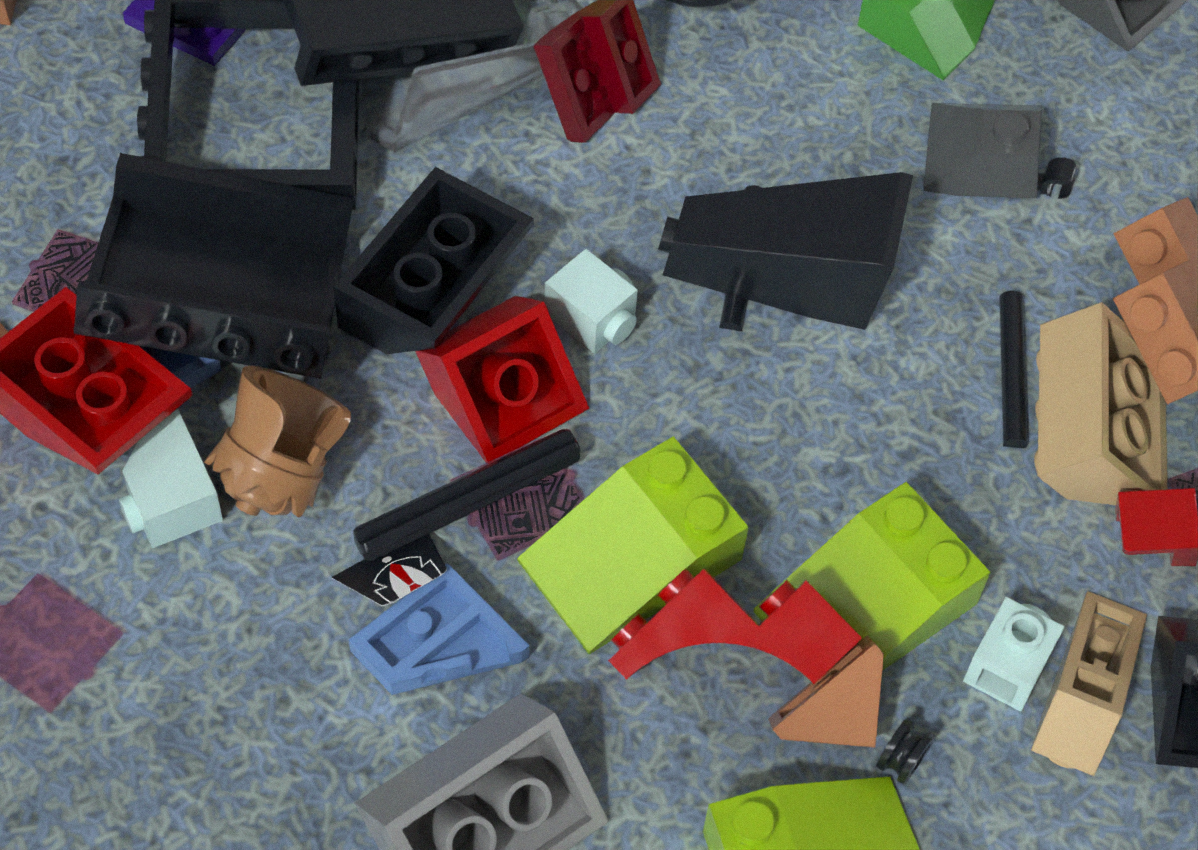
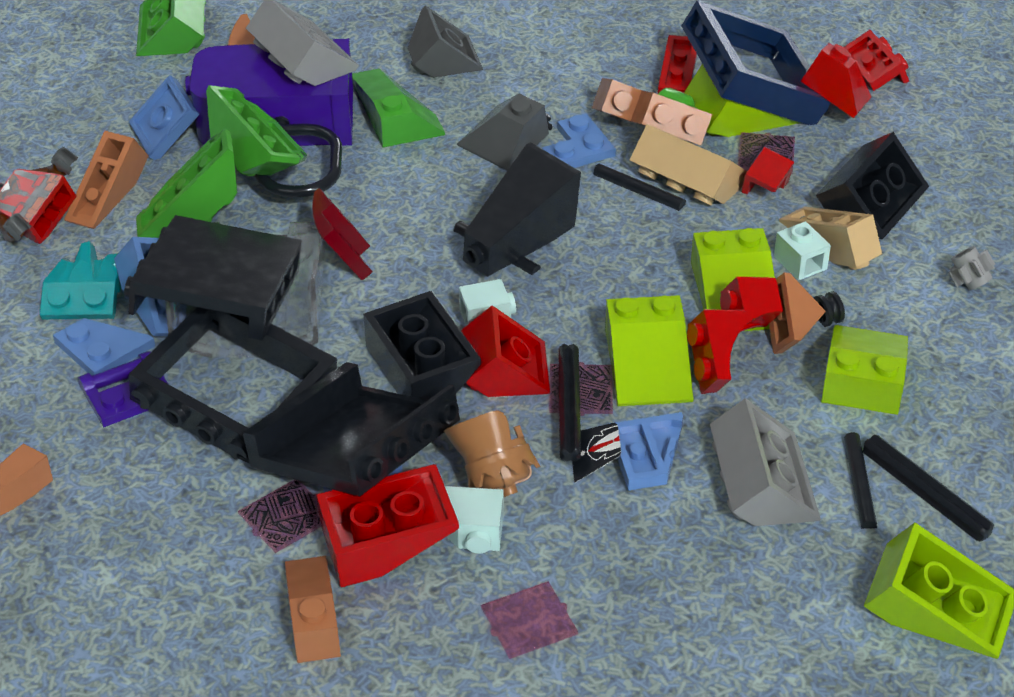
camera: 55 degrees left, 15 degrees down
(1050, 259) = (583, 142): none -> medium blue plate

